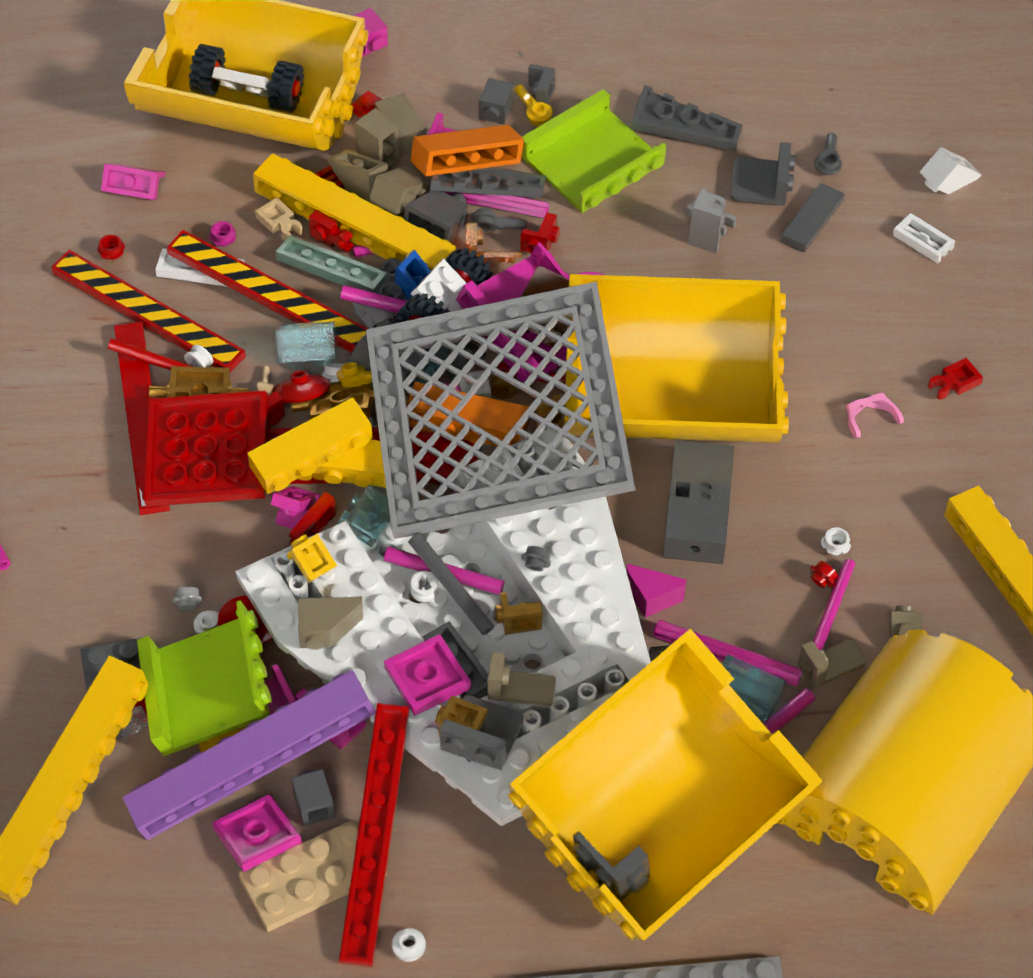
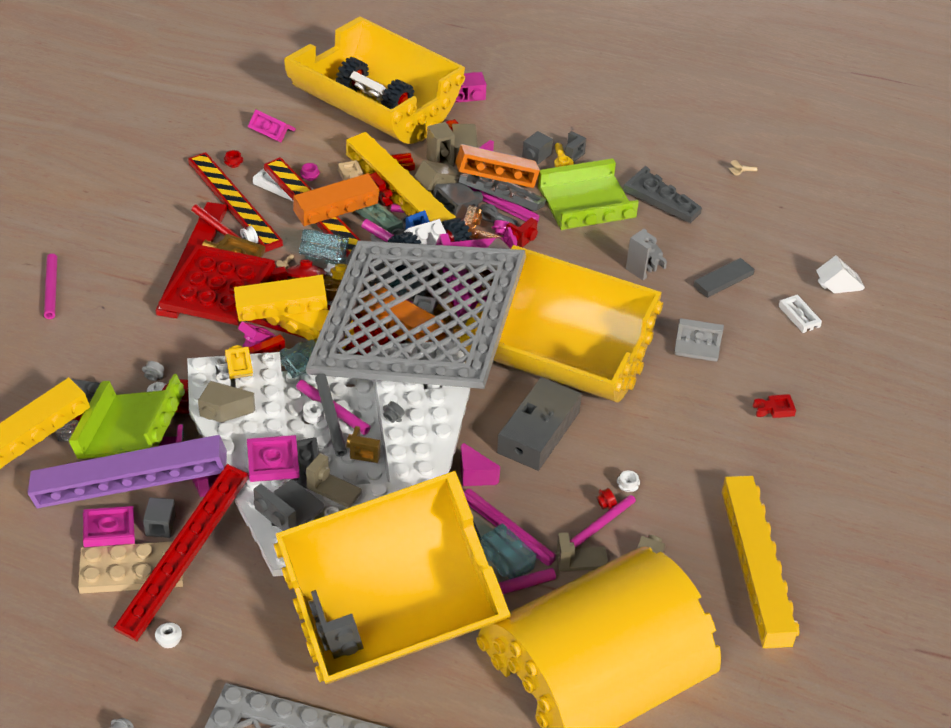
camera: 20 degrees right, 10 degrees down
(291, 271) = (335, 199): none -> orange brick
(357, 172) = (414, 156): dark tan slope -> none
(461, 712) = (281, 487): pearl gold bracket -> none
(510, 237) = (500, 227): none -> dark pink plate
(755, 50) = (738, 168): none -> tan hand
(763, 179) = (699, 244): dark grey bracket -> none
(827, 319) = (698, 339): none -> light grey bracket
(828, 160) = (753, 246): dark grey plate -> none
(877, 401) = (711, 405): bright pink cap -> none

